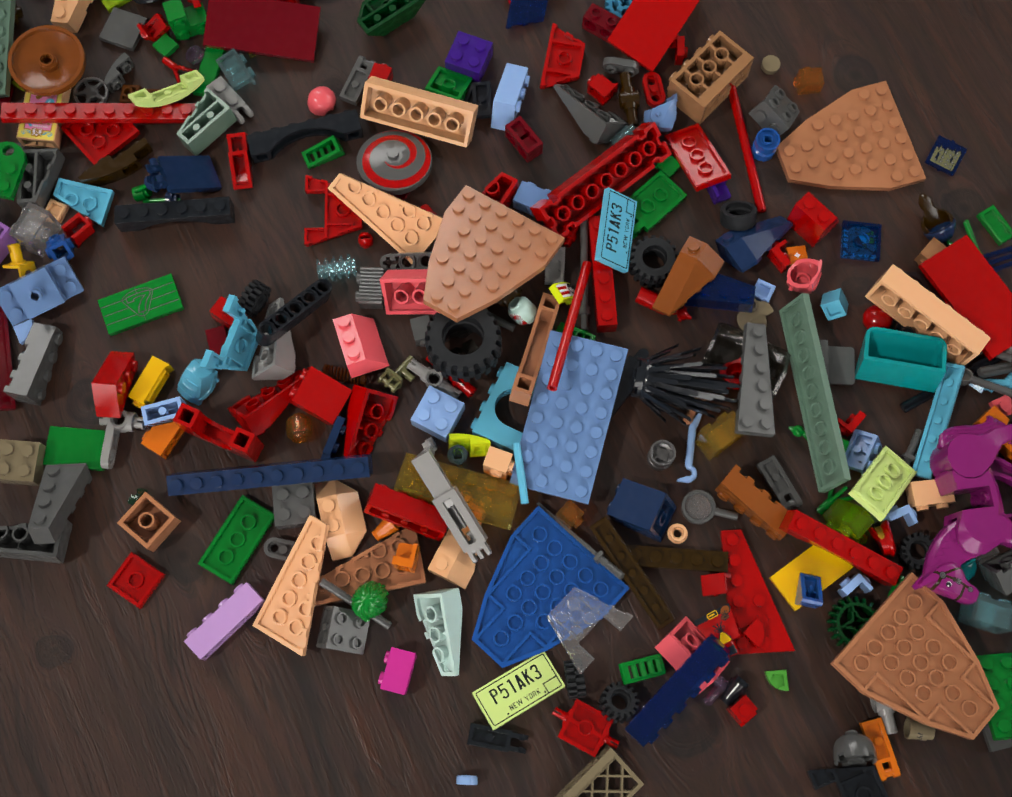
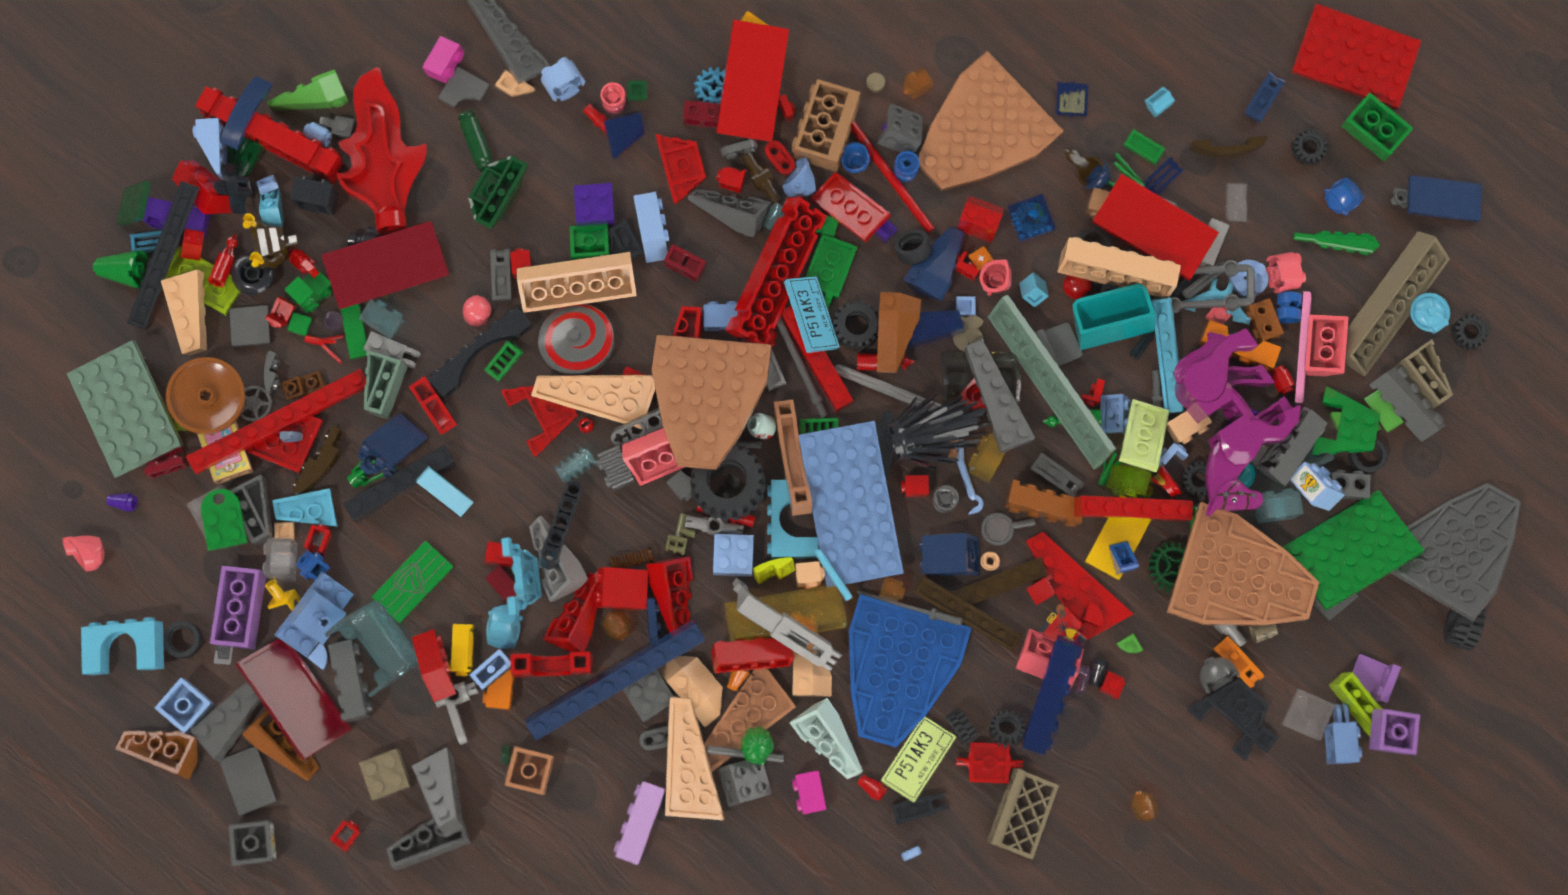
camera: 30 degrees left, 5 degrees up
(74, 446) = (426, 737): green tile -> none
(85, 339) = (382, 640): none -> clear light blue windscreen
(102, 130) = (291, 436): none -> sand blue tile
(136, 580) = (542, 826): red tile -> none
(189, 82) = (333, 371): yellowish green slope -> none
(208, 236) = (444, 491): none -> medium azure tile
(237, 540) = (612, 749): green tile -> none
(254, 297) = (516, 527): black tyre -> none
(360, 344) = (633, 525): coral slope -> none
(406, 557) = (771, 693): orange panel -> none
(457, 450) = (772, 579): clear light blue cone -> none
(462, 698) = (873, 788): none -> red cone
(562, 292) = (792, 393): slope -> none
(569, 326) = (813, 423): red piece -> none
(577, 617) = (939, 674): clear wing -> none
(639, 430) = (915, 486): none -> red brick
(654, 665) = (1022, 683): green slope -> none
(657, 334) = (880, 386): none -> light grey axle
(722, 117) = (855, 158): none -> blue hair
(850, 584) = (1154, 535): light blue bracket -> none

